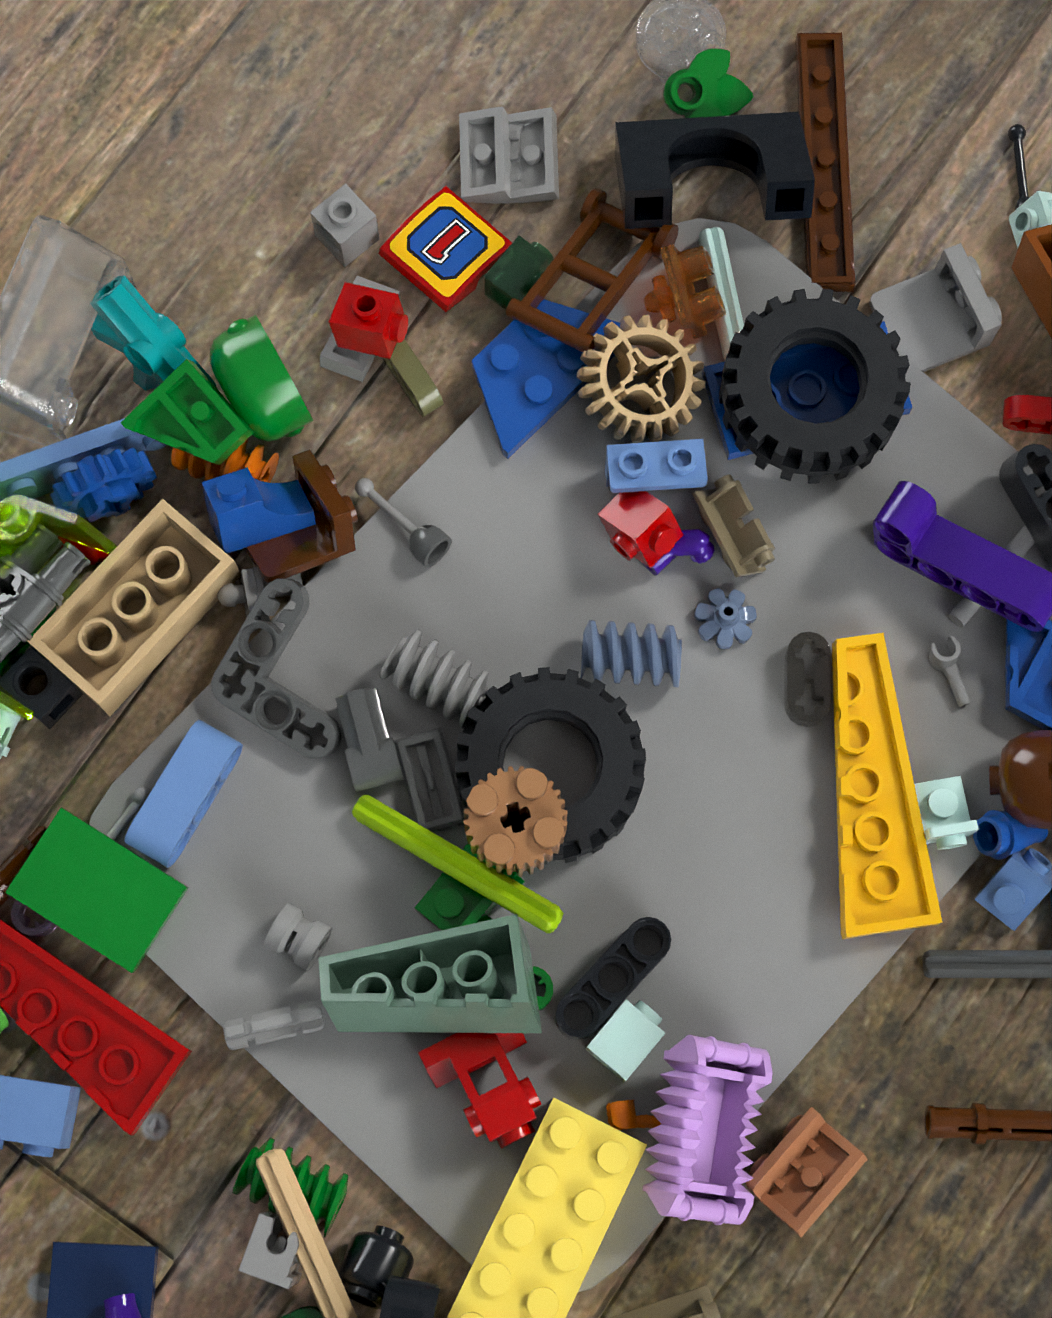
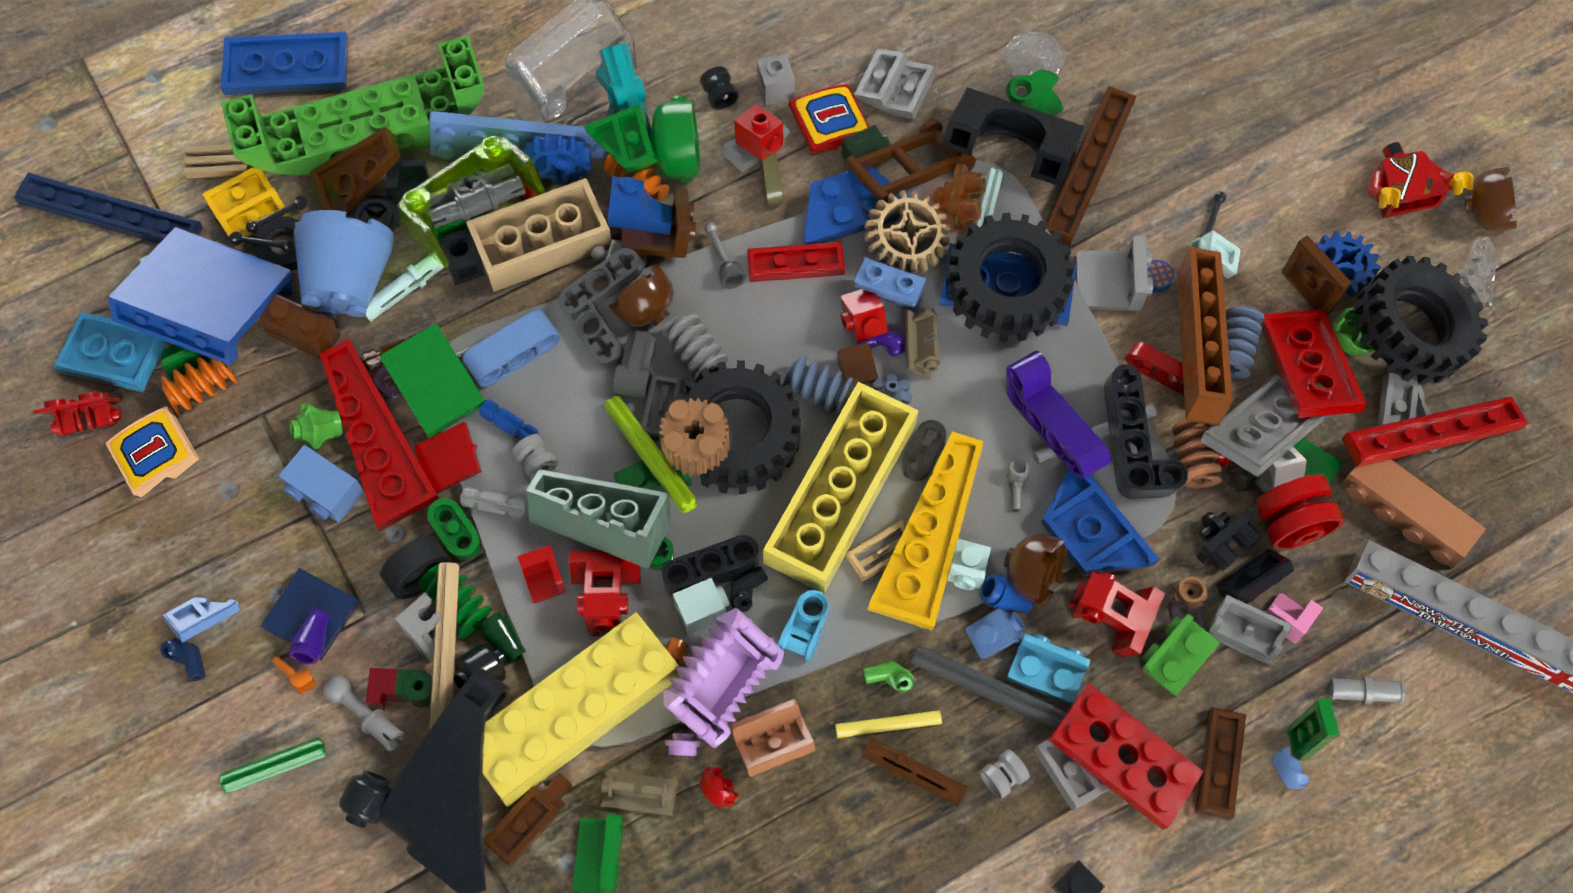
camera: 25 degrees right, 10 degrees down
(176, 988) = (448, 457): none -> red piece
(214, 1171) = (409, 564): none -> black tyre
(233, 901) = (506, 420): none -> blue axle
(236, 1086) = (455, 530): none -> green plate
(270, 270) = (717, 83): none -> black wheel
(334, 639) = (645, 300): none -> reddish brown cylinder
(379, 1203) = (501, 634): none -> dark green cone
(393, 1097) = (541, 574): none -> red panel
(505, 485) = (795, 261): none -> red tile
(663, 599) = (857, 363): none -> reddish brown slope
(667, 987) = (743, 588): none -> black arm
(692, 1238) = (682, 744): none -> lavender plate
(732, 788) = (840, 487): none -> light yellow brick
(766, 1271) = (717, 787): none -> red plate
(776, 1005) = (804, 631): none -> medium azure piece
(799, 881) = (858, 567): none -> tan tile
(909, 1005) = (891, 673): none -> bright green arm
(937, 1075) = (888, 724): none -> light yellow bar
(996, 280) = (1162, 275): none -> tile

